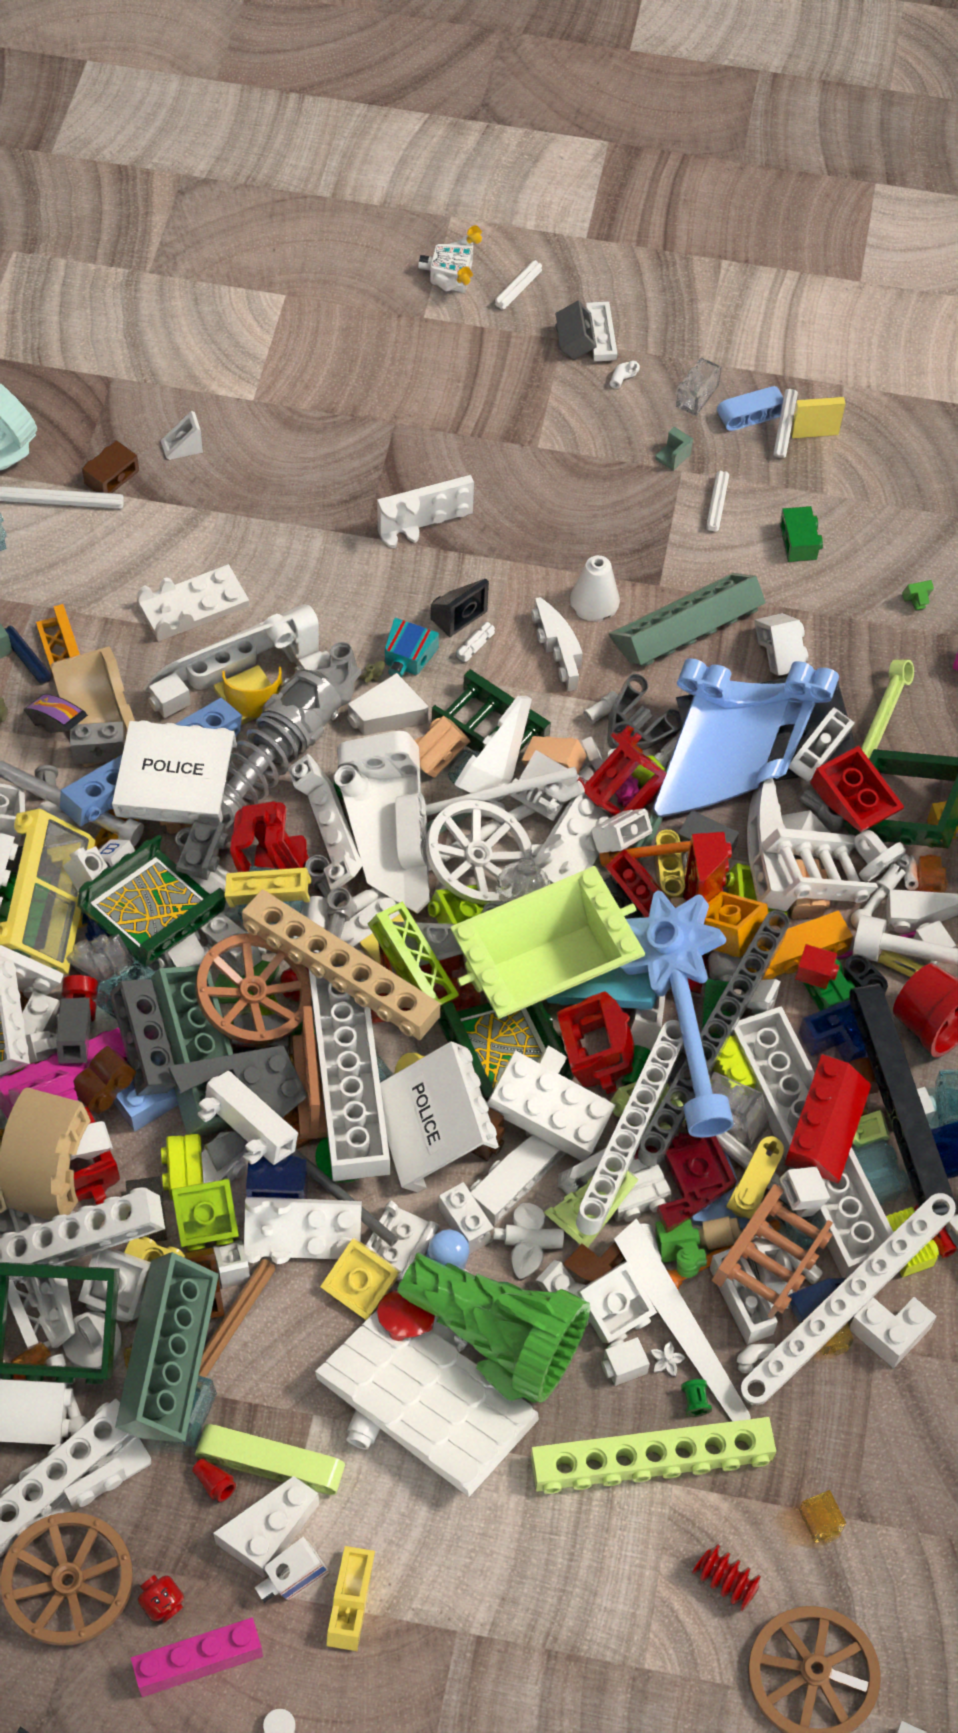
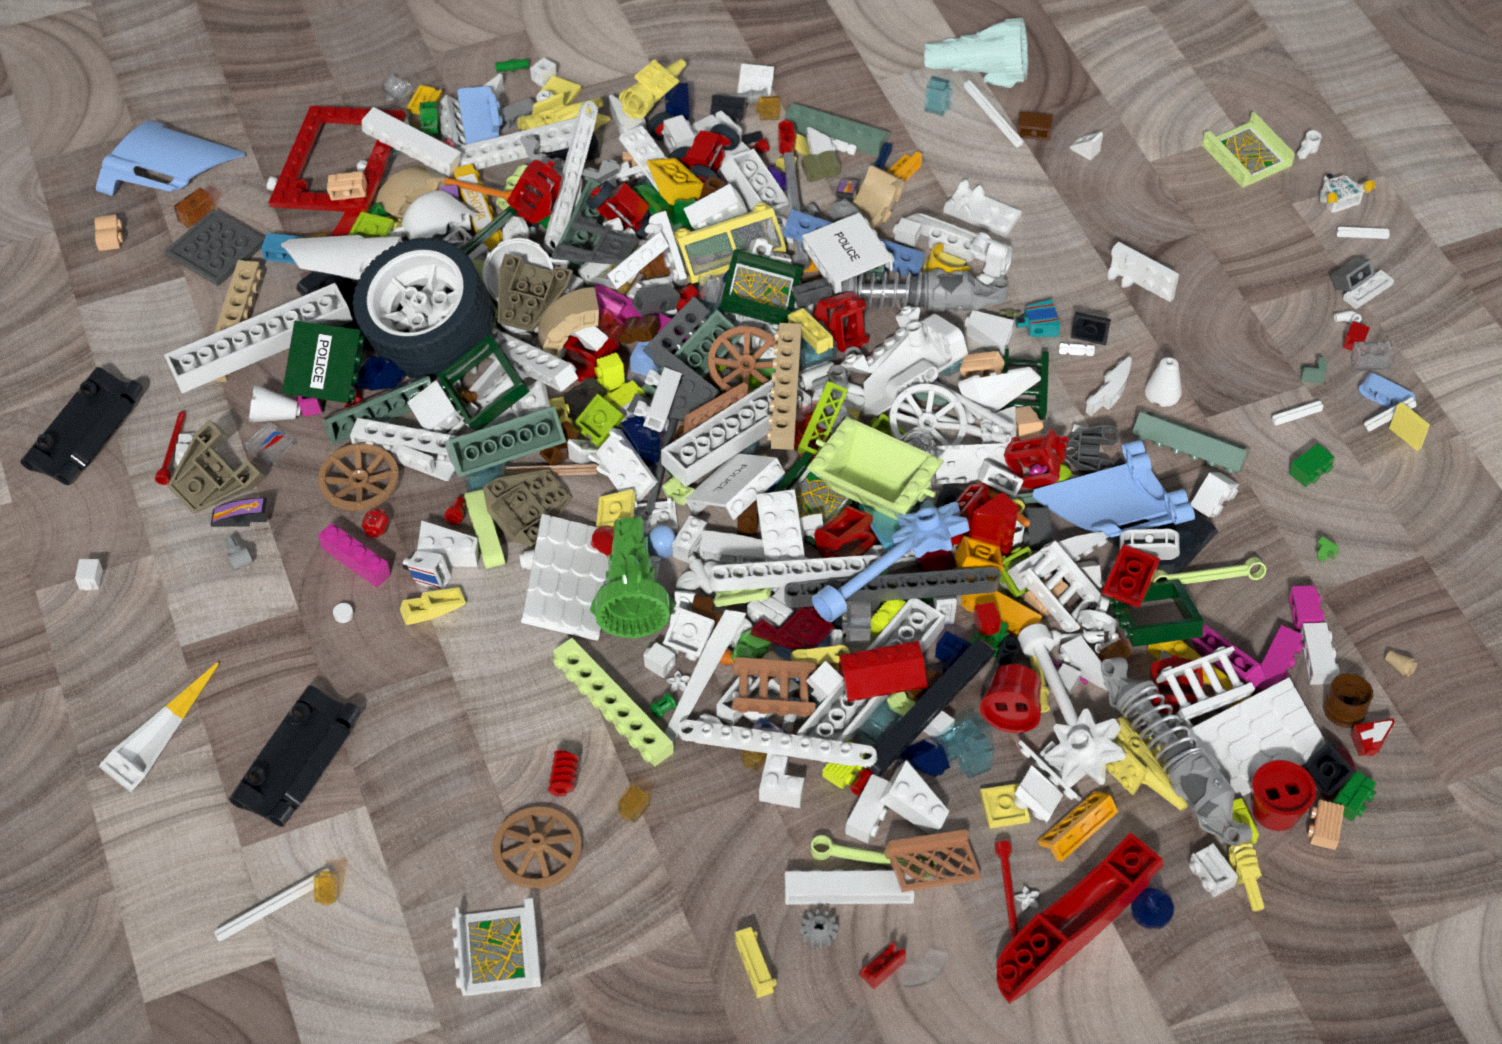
camera: 60 degrees right, 5 degrees down
(93, 1101) = (610, 325): none -> clear red brick
(137, 1154) = (610, 372): none -> neon yellow brick
(277, 1385) = (520, 501): none -> dark tan wedge
(320, 302) = (1249, 151): none -> panel
(360, 246) = (1310, 144): none -> white axle
(381, 1189) = (676, 491): none -> yellowish green bracket
(659, 384) = (1356, 333): none -> red brick

